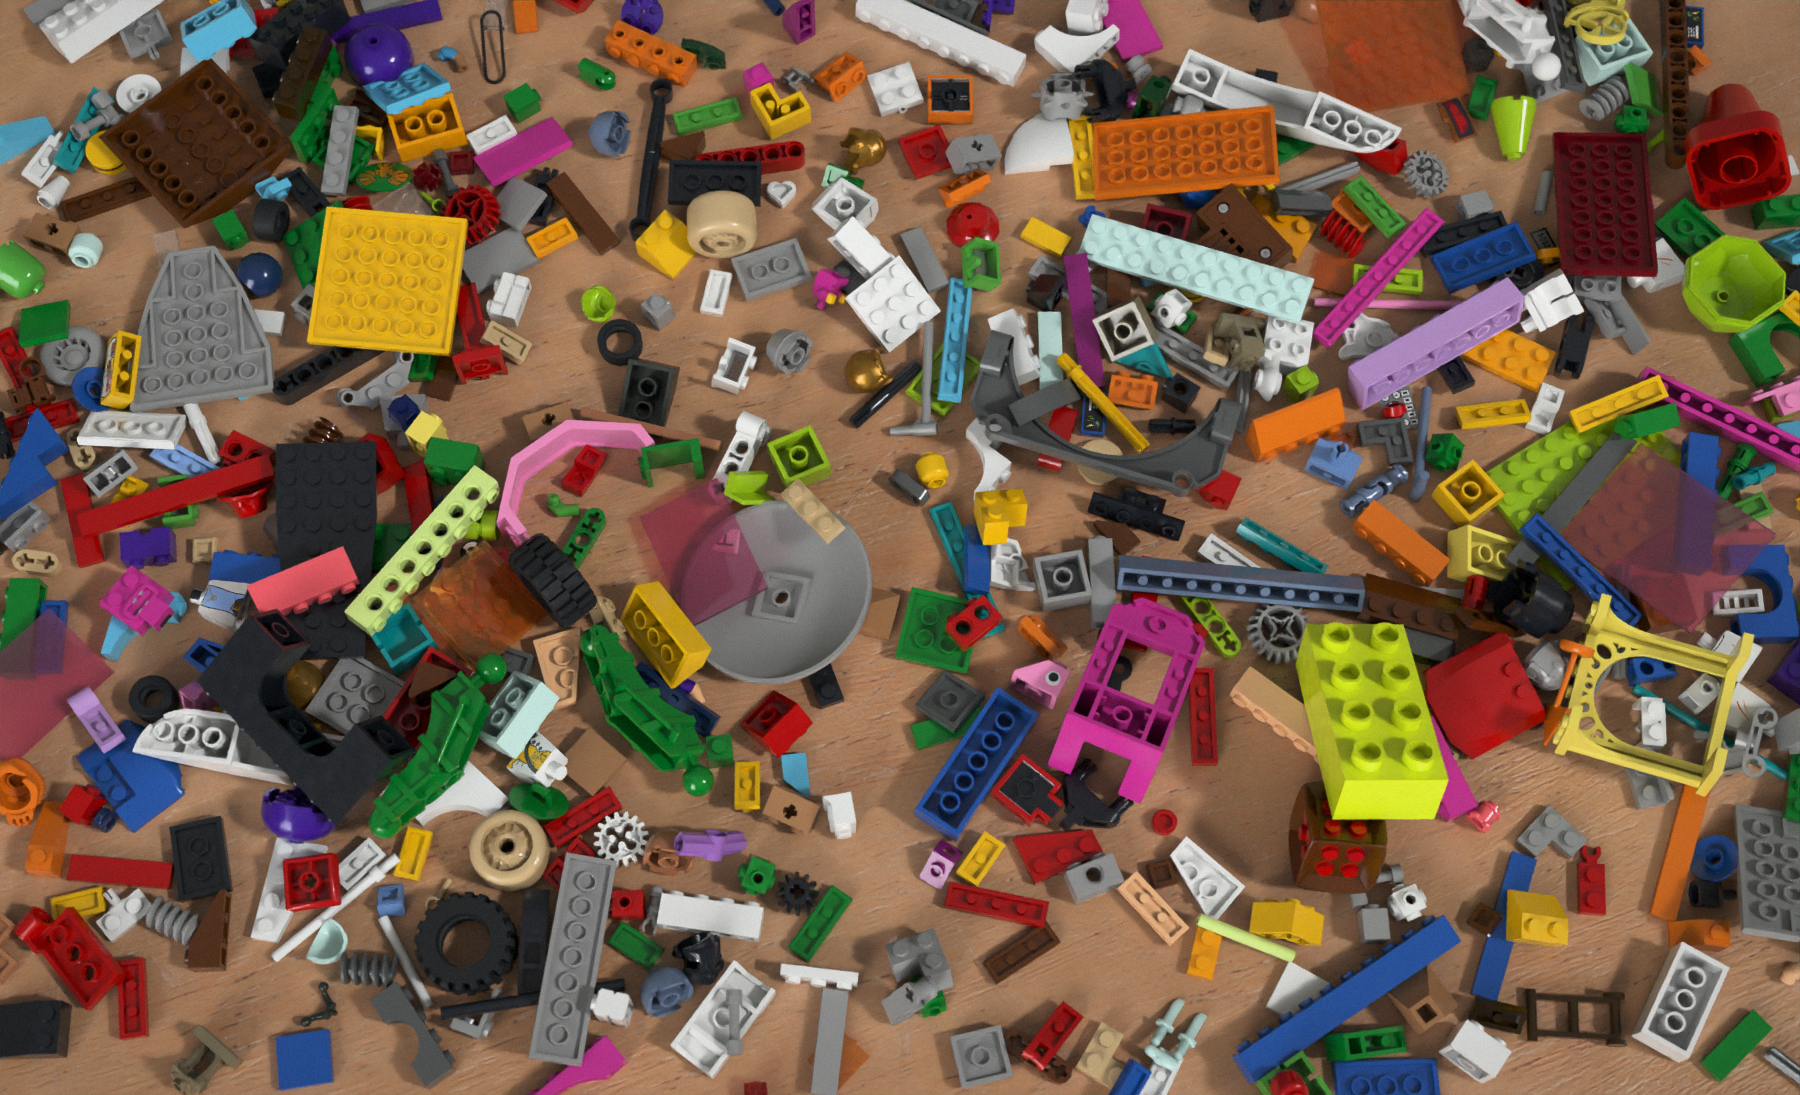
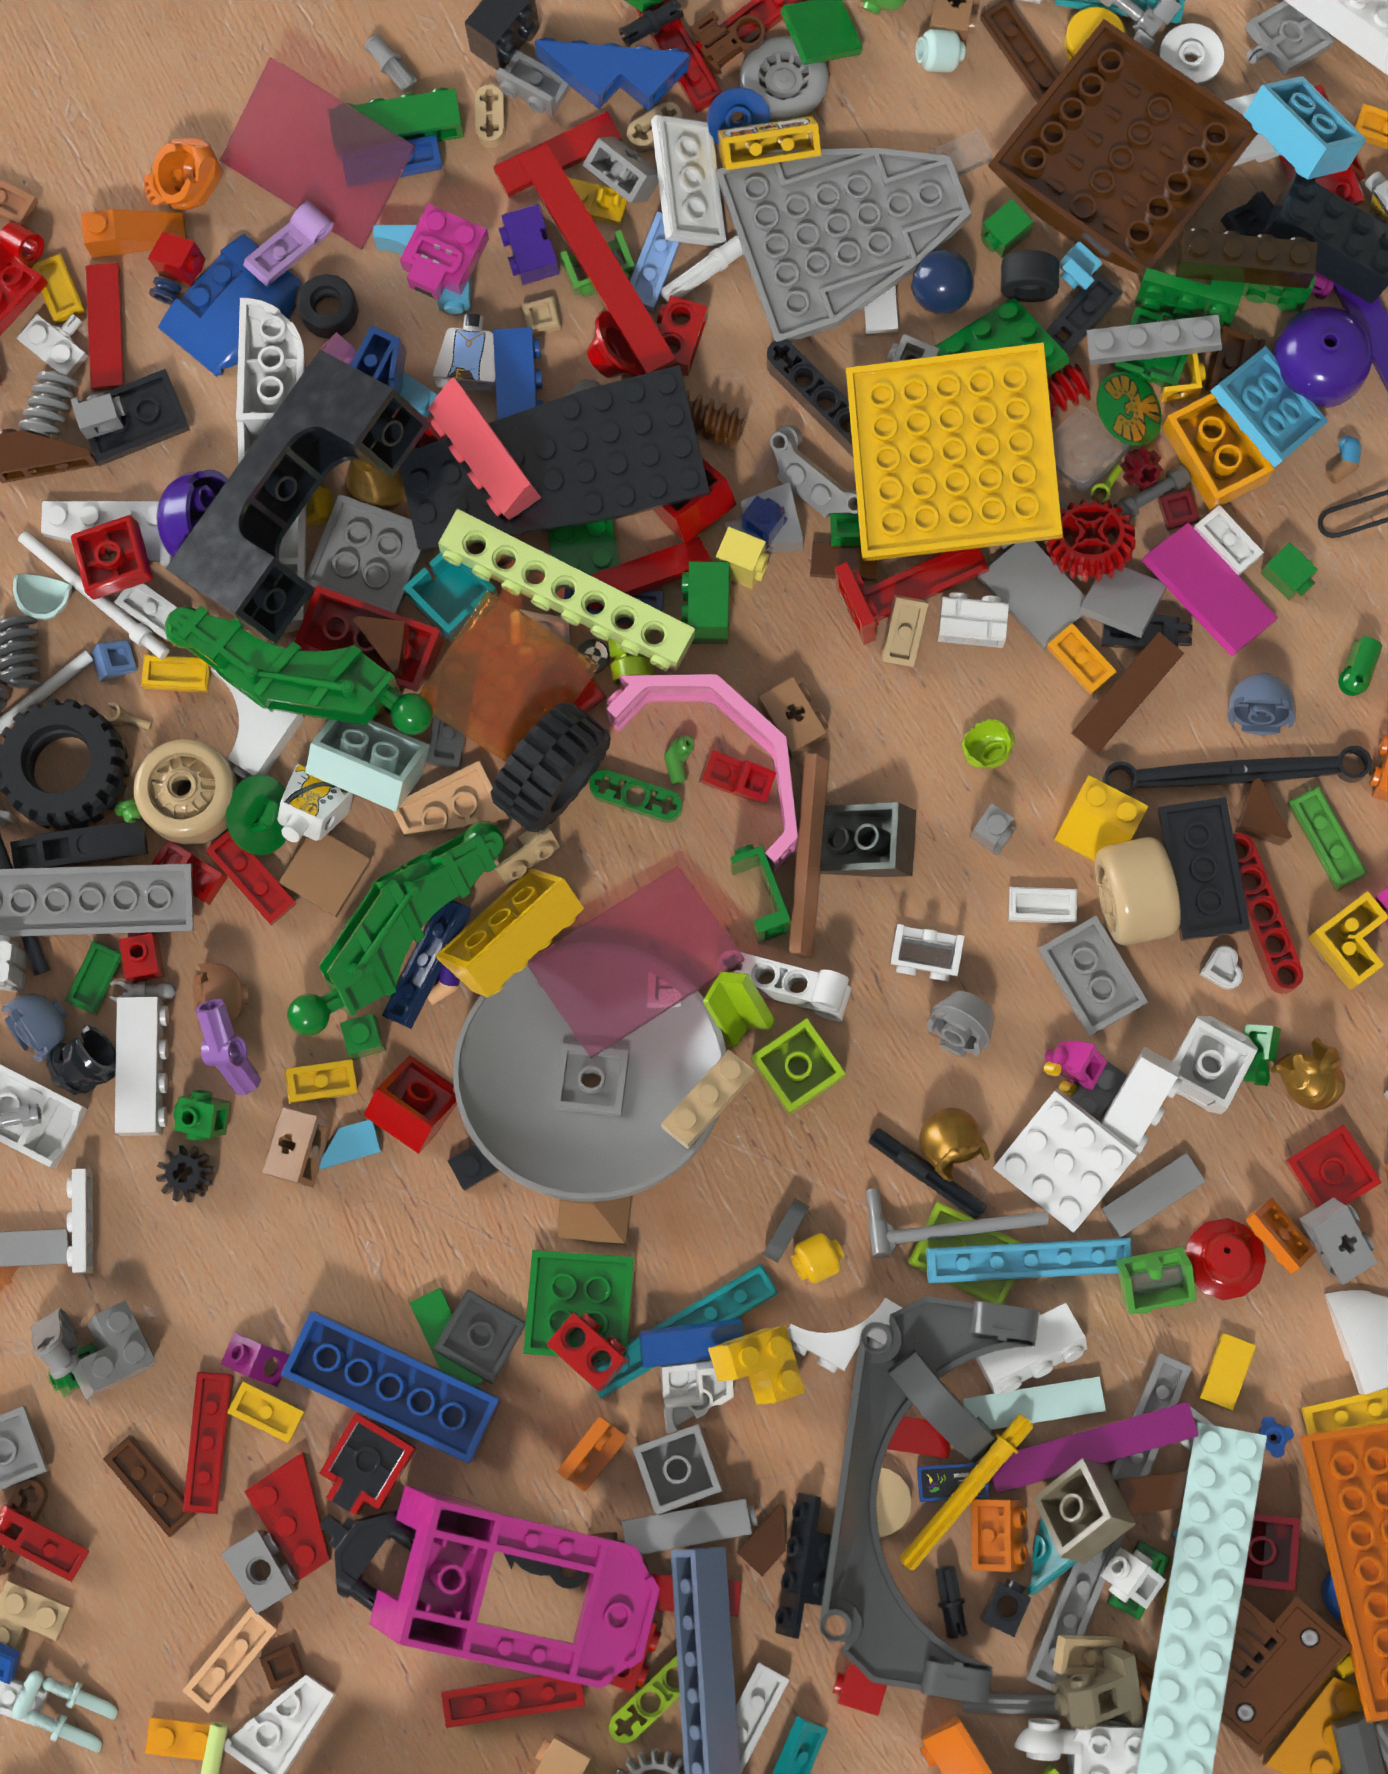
camera: 90 degrees right, 10 degrees up
(193, 878) = (98, 414): none -> light grey brick
(513, 895) = (128, 810): none -> bright green arm
(612, 327) = (942, 761): black tyre -> none
(635, 836) = (244, 924): white gear -> none
(820, 923) = (154, 1211): green tile -> none
(840, 814) = (292, 1212): white window -> none
(1041, 682) = (520, 1462): bright pink slope -> none
(1046, 291) = (1129, 1382): black slope -> none
(1164, 822) = (355, 1661): red tile -> none

